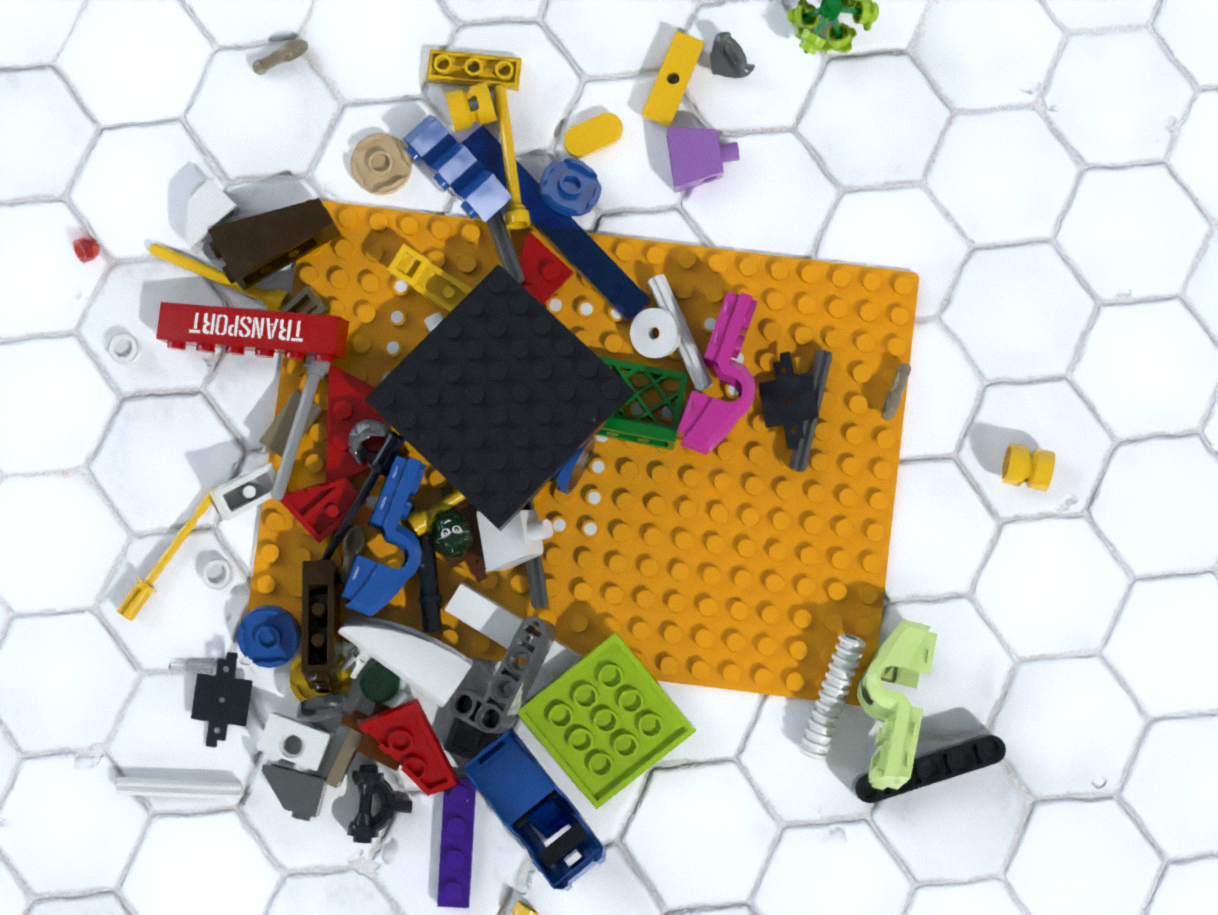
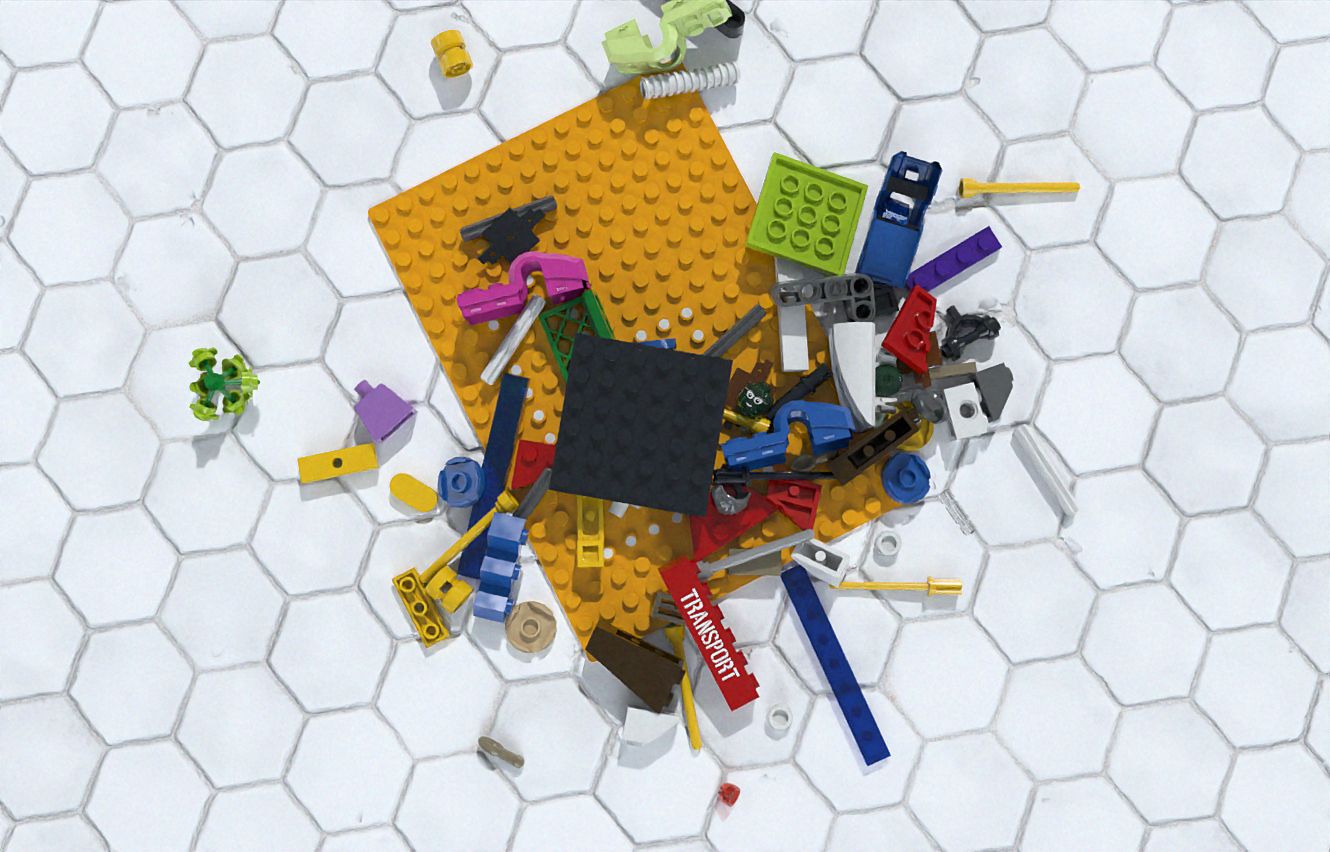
camera: 125 degrees left, 0 degrees up
(137, 437) = (835, 665): none -> clear blue tile
(207, 694) = (969, 493): black piece -> none
(515, 542) = (732, 347): white torso -> none
(668, 328) = (535, 358): white piece -> none
(729, 58) = (301, 435): dark grey piece -> none
(895, 394) = (463, 169): dark tan piece -> none

